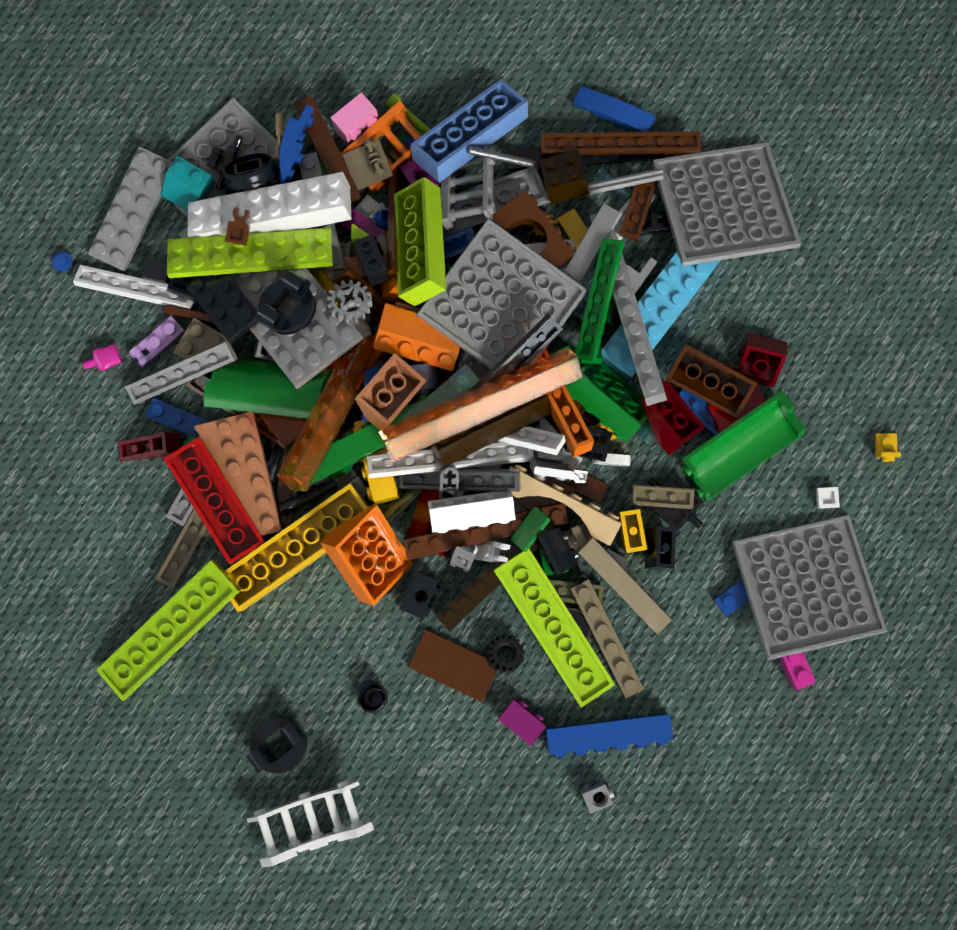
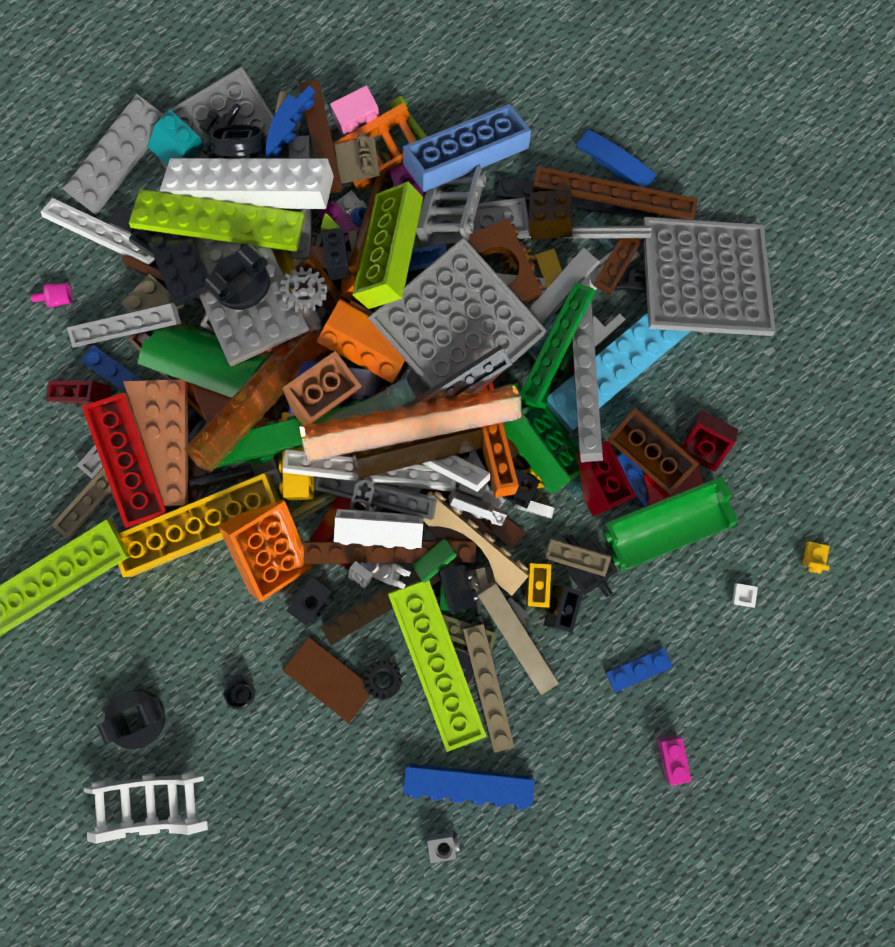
camera: 15 degrees right, 0 degrees up
(62, 261) = (36, 191): blue plate -> none
(157, 341) = (110, 290): lavender plate -> none
(238, 231) = (209, 195): reddish brown plate -> none
(503, 157) = (493, 181): flat silver bar -> none
(522, 722) = (384, 752): magenta brick -> none
(808, 587) = (705, 683): light grey tile -> none

